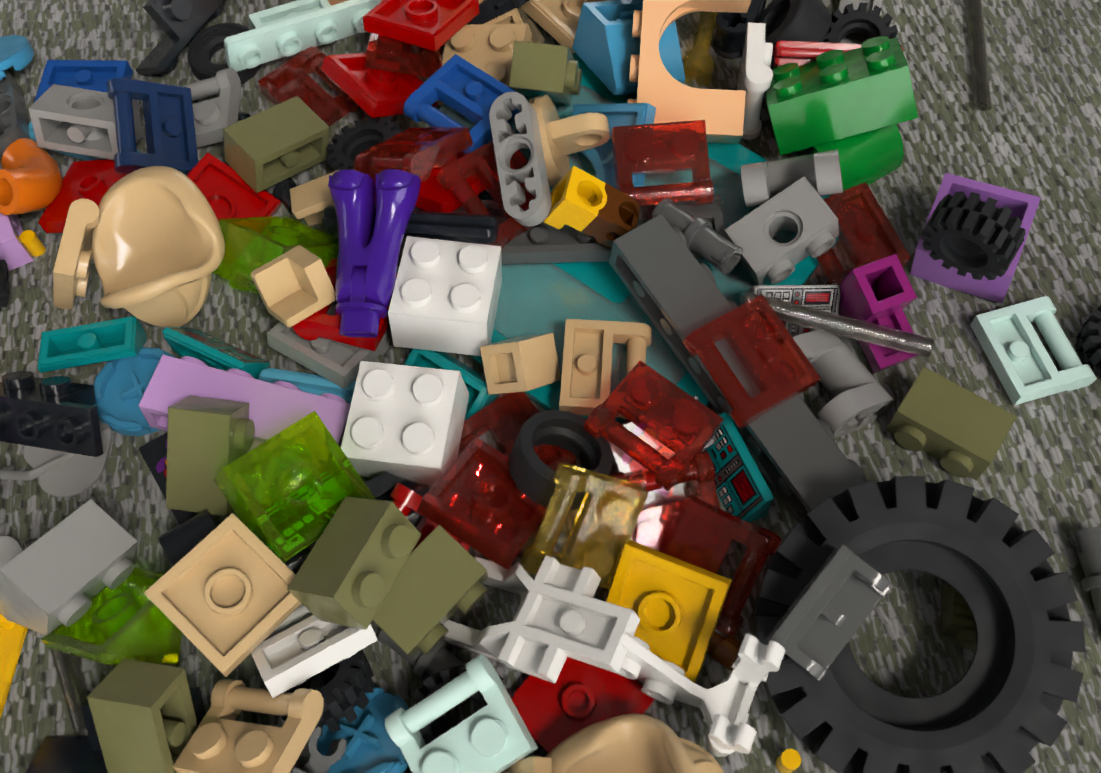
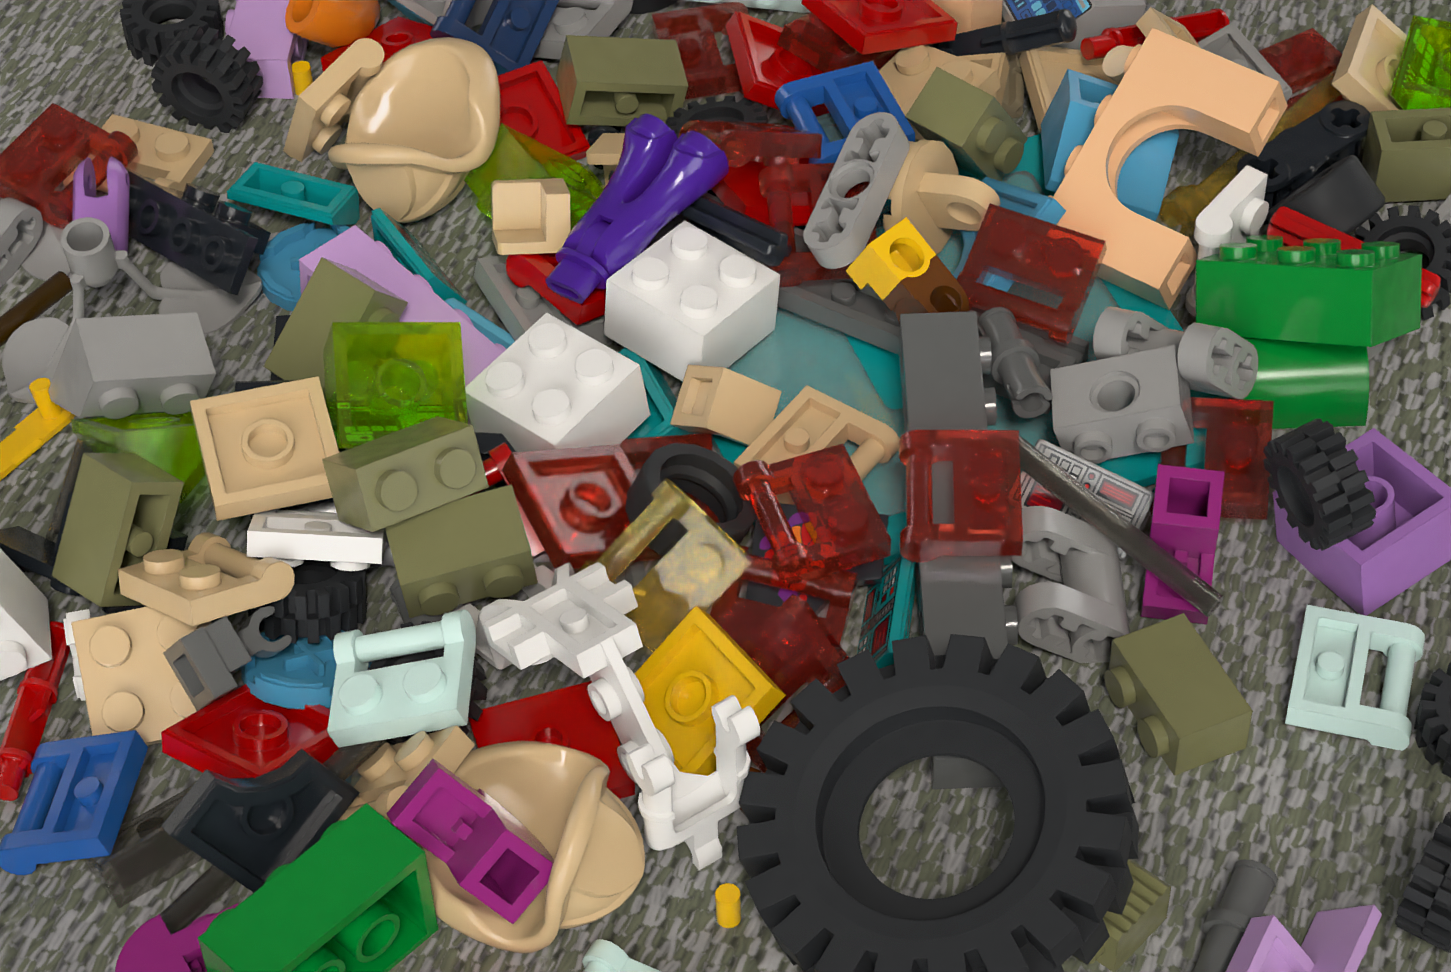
camera: 30 degrees right, 15 degrees down
(829, 611) = (839, 732): dark grey hinge -> none

